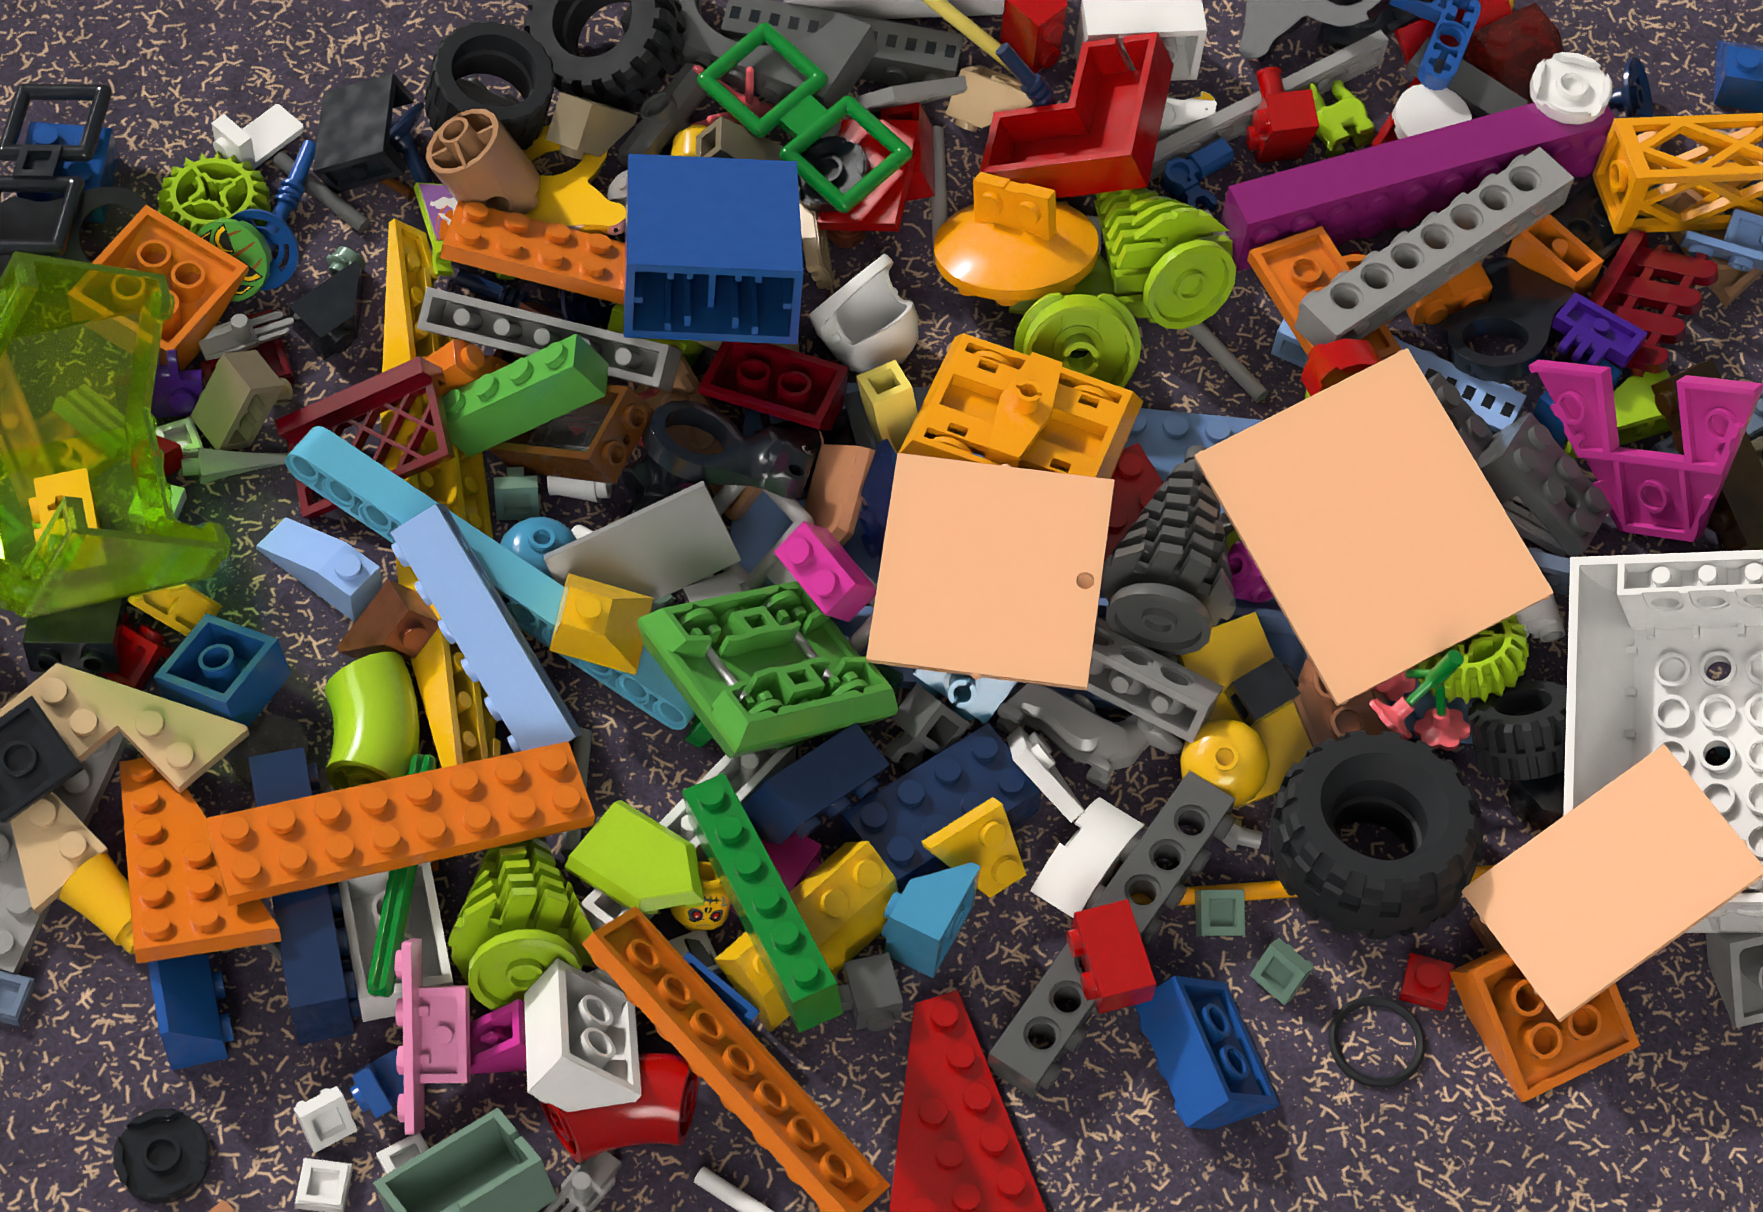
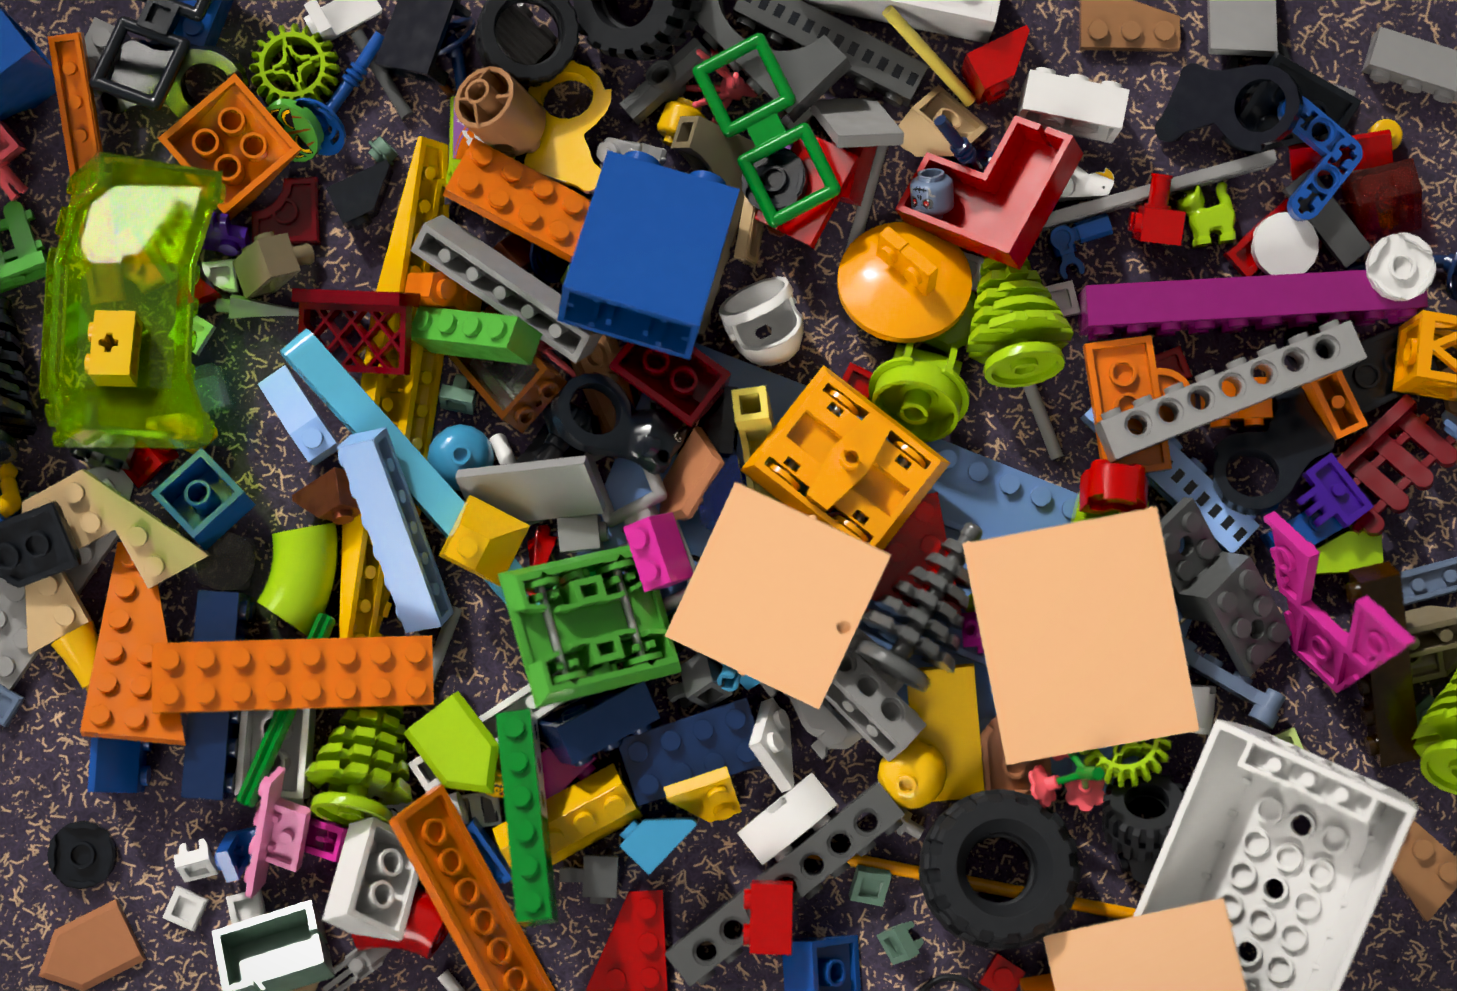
camera: 20 degrees right, 25 degrees up
(241, 336) = (285, 200): light grey piece -> none
(587, 126) = (598, 83): dark tan slope -> none
(1015, 143) = (932, 192): none -> sand blue head
(1263, 691) = (956, 733): black brick -> none

